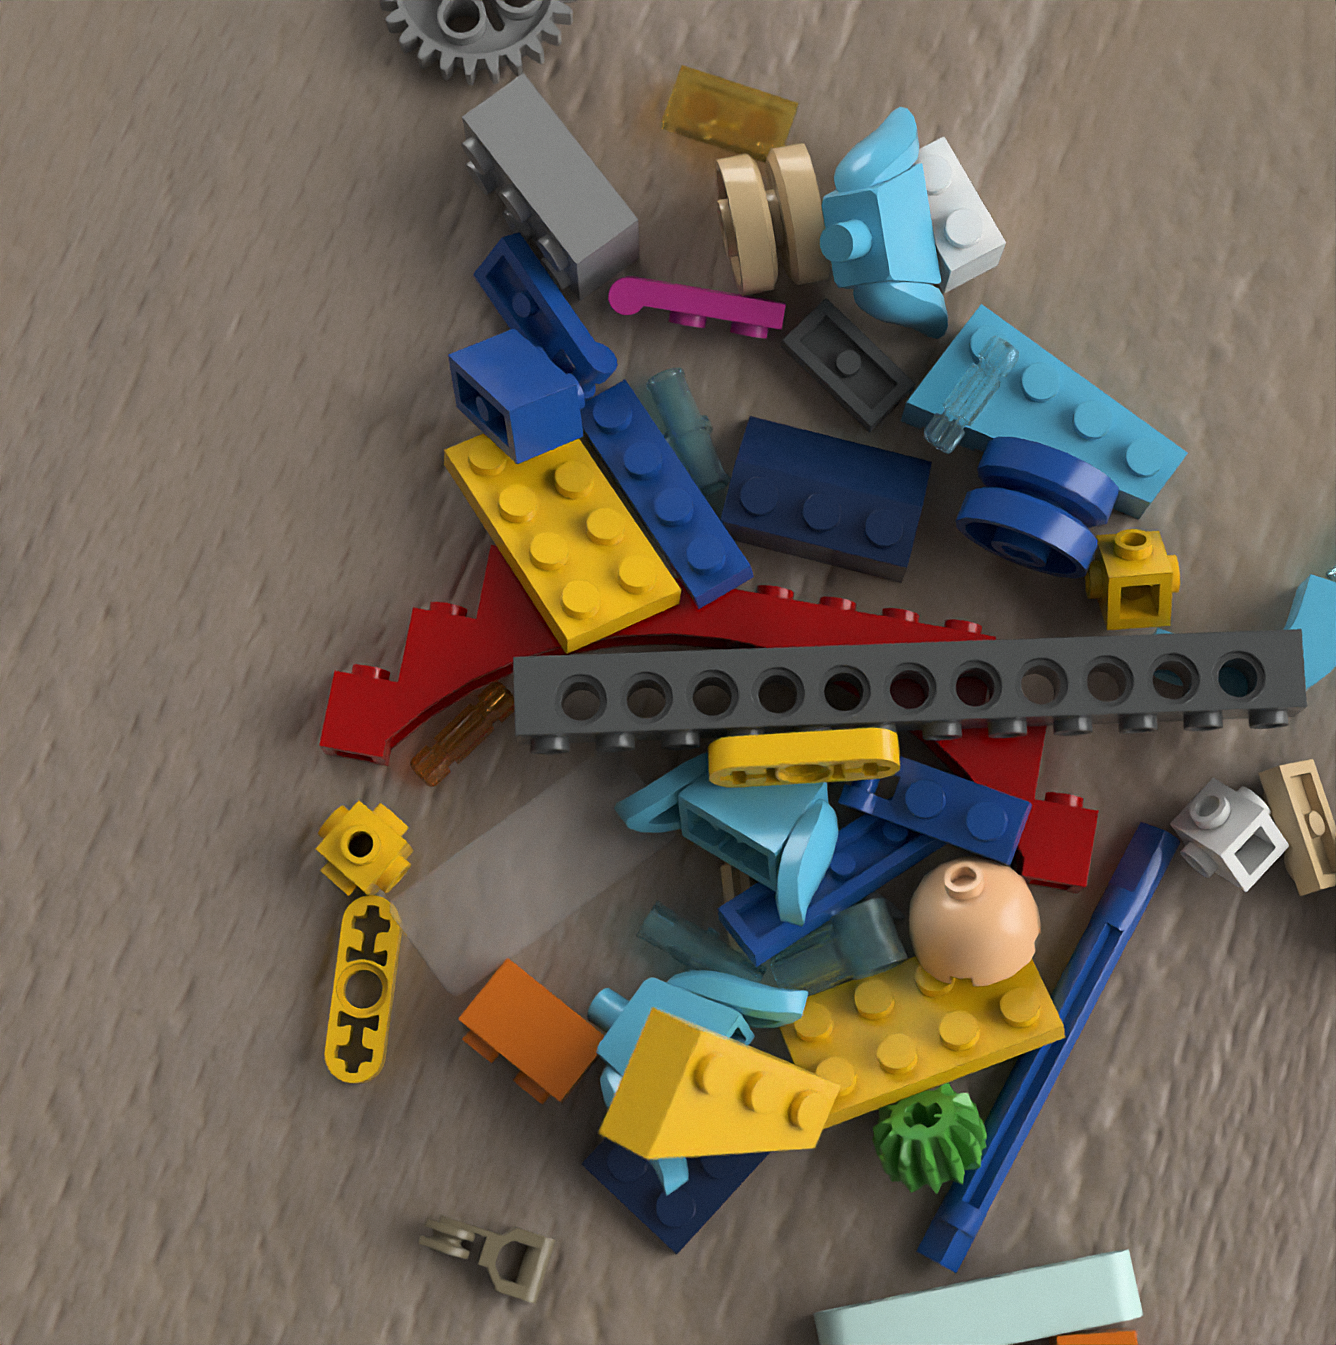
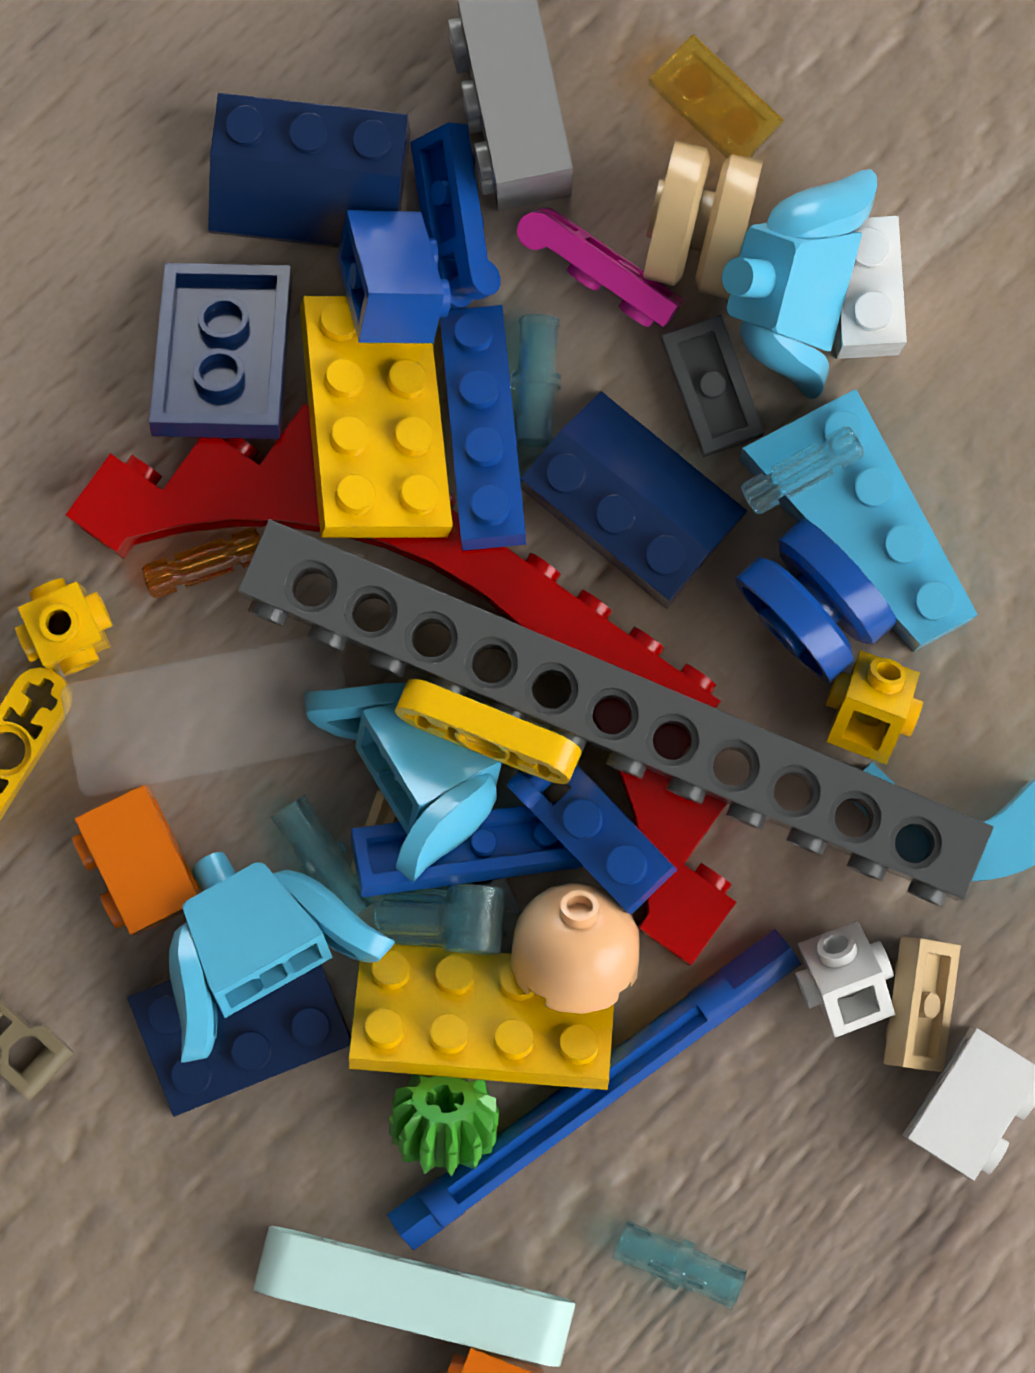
camera: 30 degrees right, 5 degrees up
(386, 338) = (299, 167): none -> dark blue slope
(392, 533) = (221, 351): none -> plate
(712, 1096) = (260, 995): yellow wedge -> none
(1204, 1168) = (679, 1264): none -> clear light blue pin

